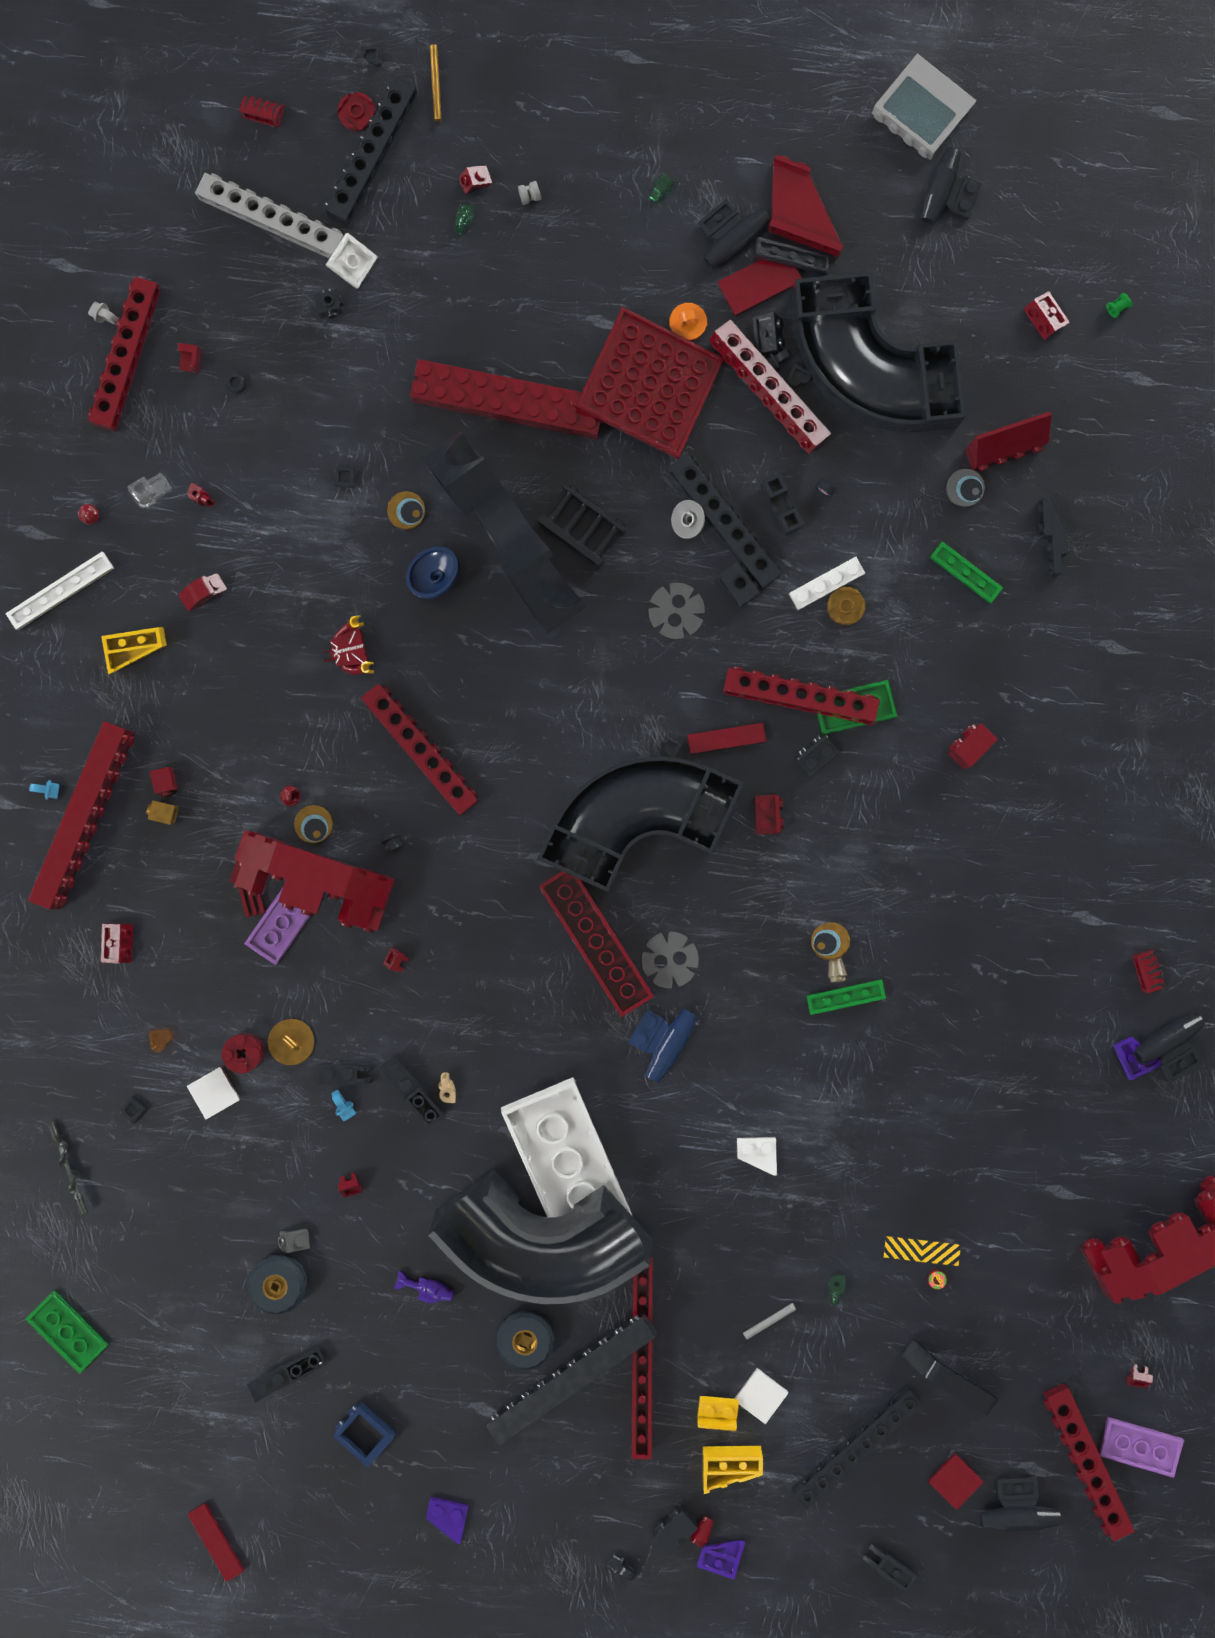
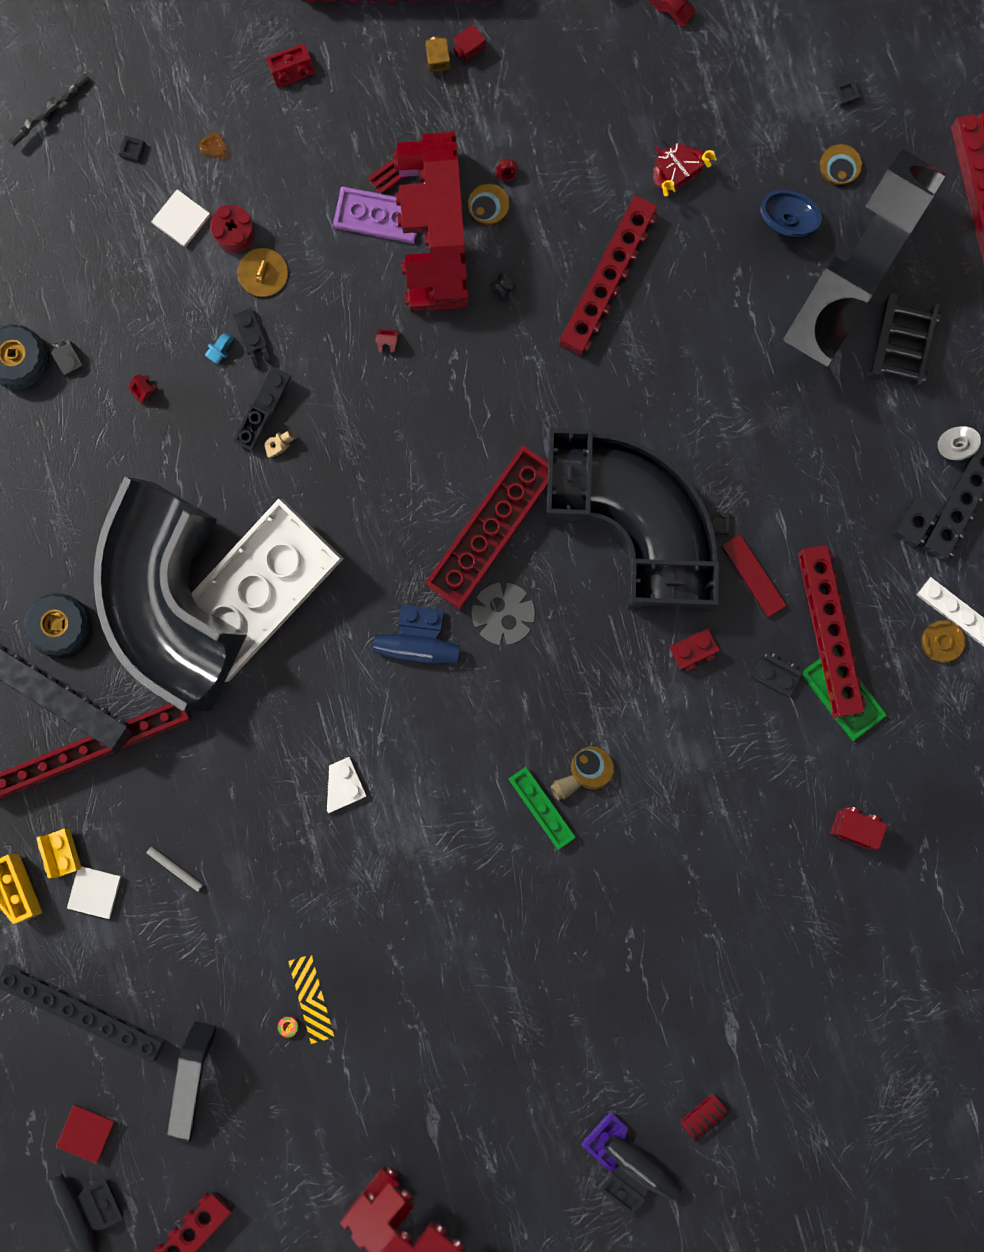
camera: 65 degrees right, 5 degrees down
(429, 1289) = (69, 510): dark purple animal -> none
(688, 620) = (864, 456): dark grey piece -> none
(836, 1292) = (233, 926): clear green piece -> none

